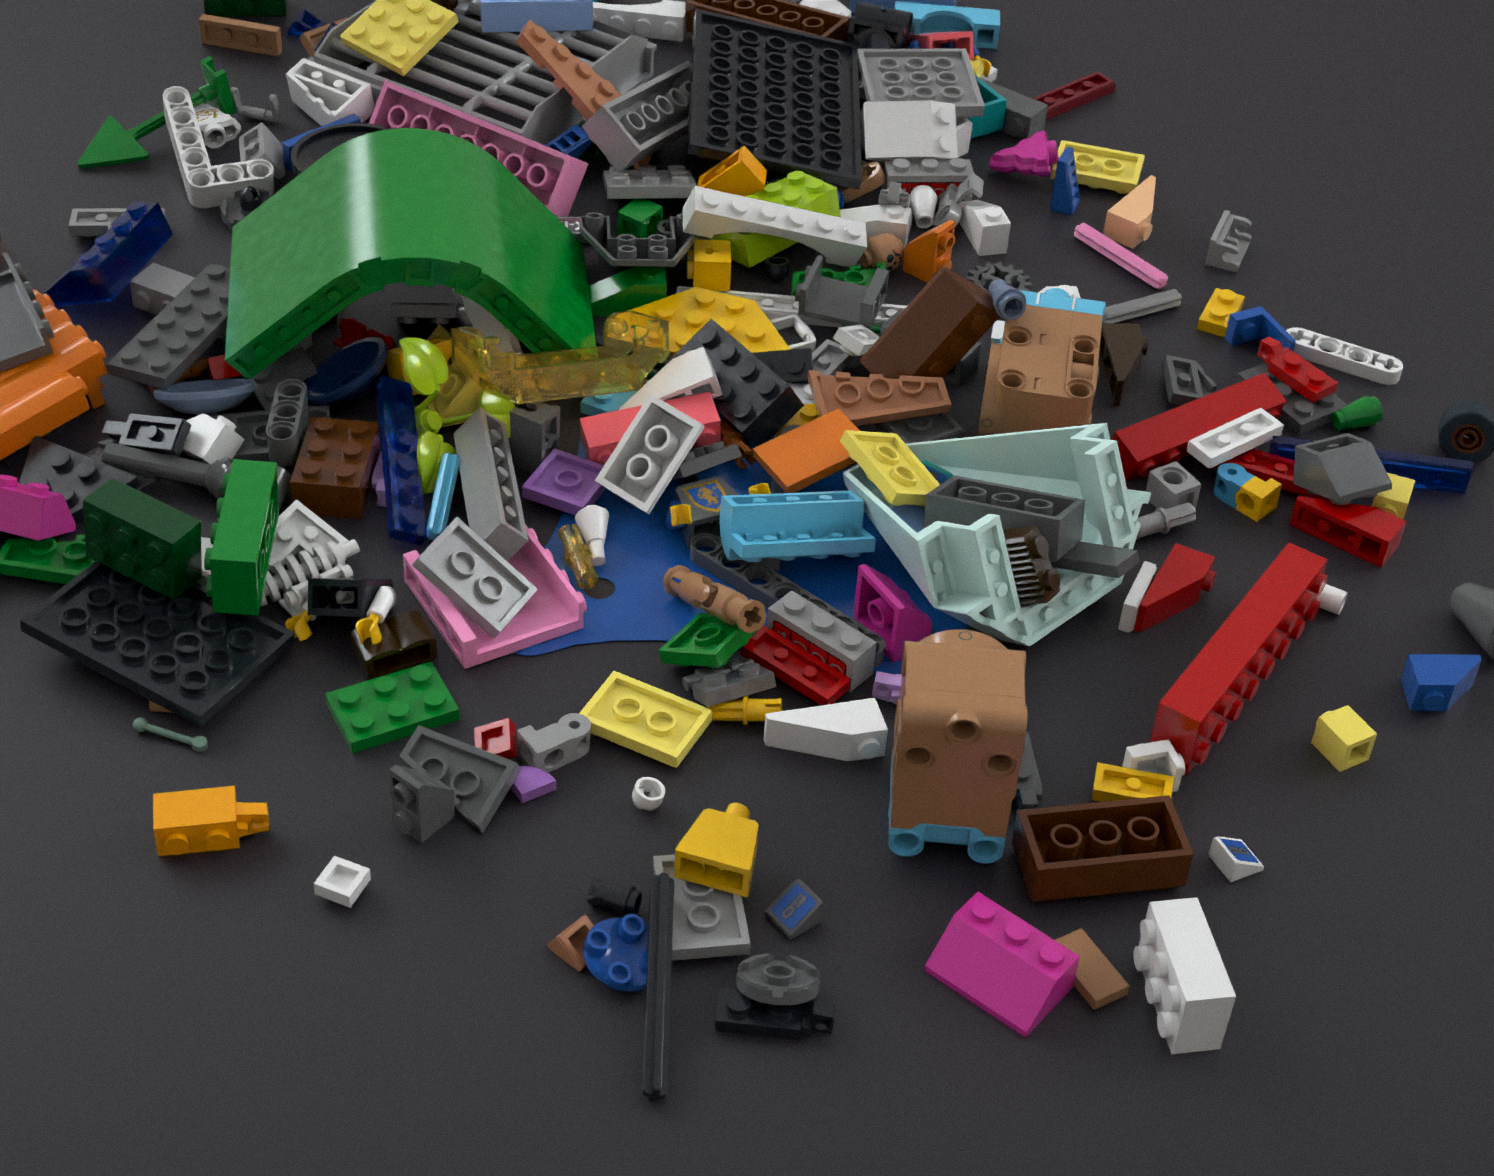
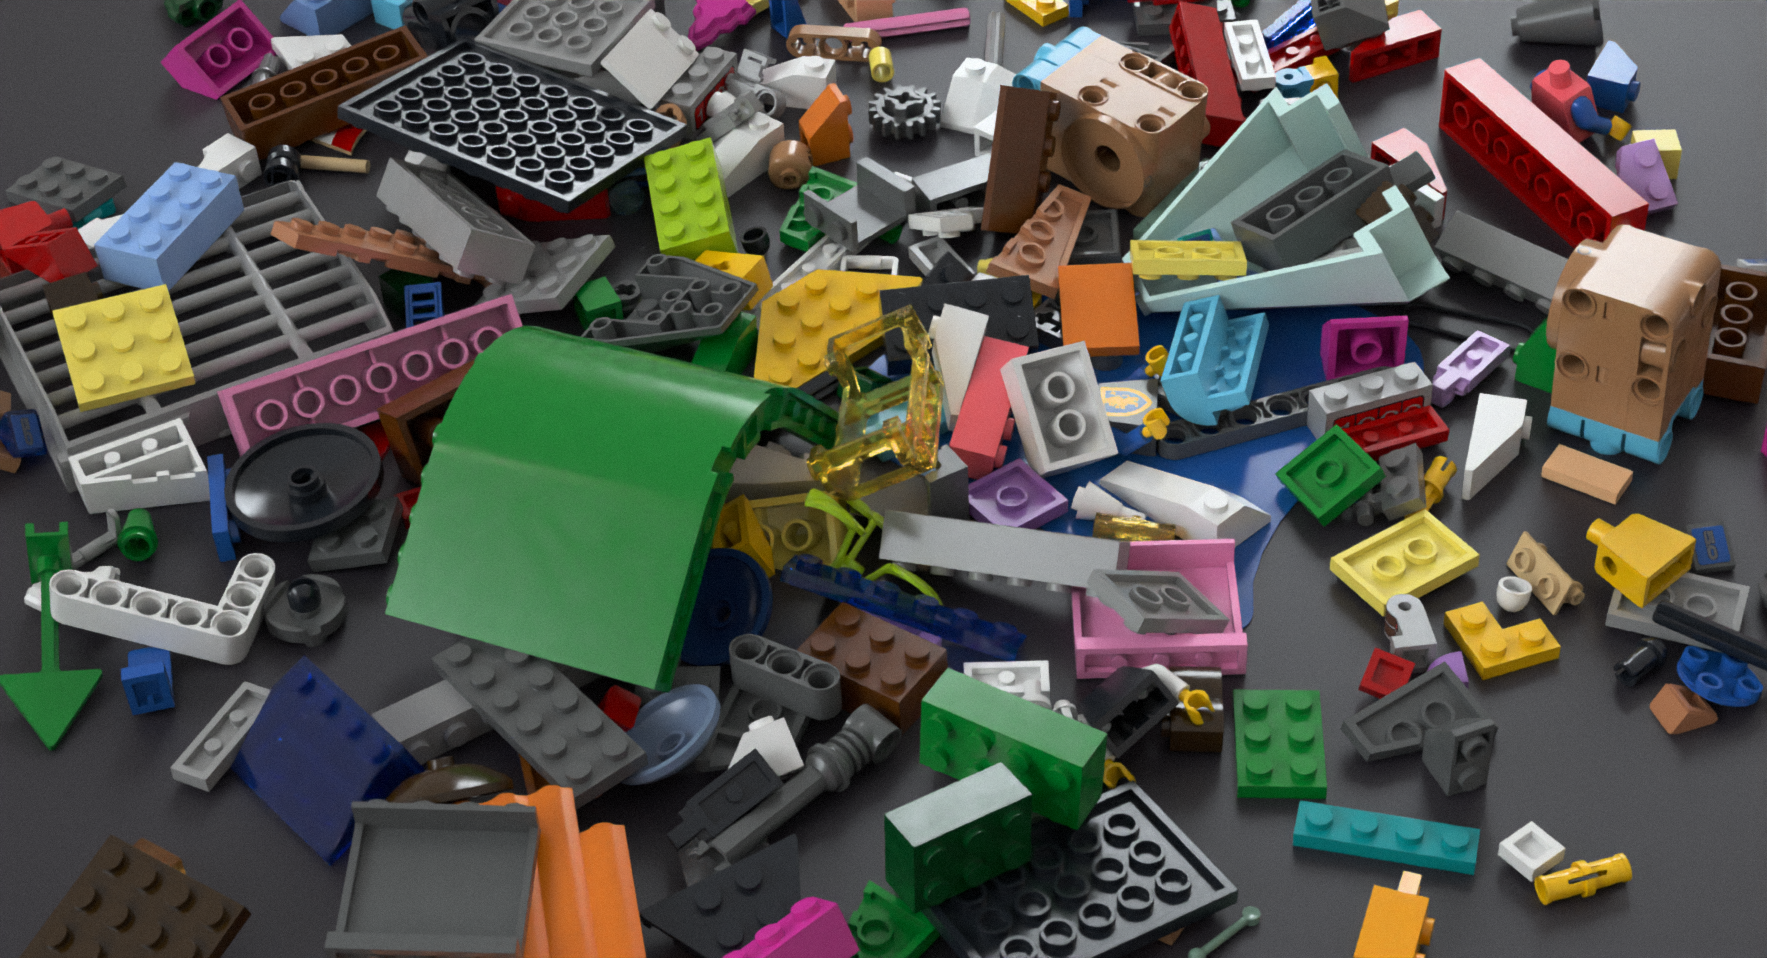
camera: 55 degrees left, 0 degrees up
(91, 309) = (450, 783): none -> dark brown dish
(144, 179) = (148, 680): none -> blue bracket
(262, 144) = (196, 562): light grey hinge -> none
(280, 120) = (138, 536): none -> green cone
(318, 913) = (1609, 871): none -> yellow pin
(320, 796) = (1386, 837): none -> teal plate
(374, 544) = (1010, 675): none -> white plate
(443, 495) = (974, 597): medium azure axle -> none
(584, 807) = (1495, 649): none -> yellow plate
(629, 581) = (1193, 506): none -> white wedge
(678, 818) = (1544, 574): none -> tan hinge
(680, 42) = (282, 165): none -> black wheel
(715, 598) = (1261, 455): medium nougat piece -> none
(719, 212) = (707, 217): white arch -> none
(736, 174) = (617, 210): light orange hinge -> none
(844, 807) = (1587, 474): none -> light nougat tile
(1007, 300) = (1049, 76): sand blue cone -> none
(1053, 258) = (881, 64): none -> light yellow hinge
(1055, 226) = (844, 34): none -> medium nougat beam
(1078, 707) = (1500, 260): none -> light grey brick
(1282, 735) = (1645, 173): none -> lavender wing
(1354, 654) = (1571, 103): none -> coral torso

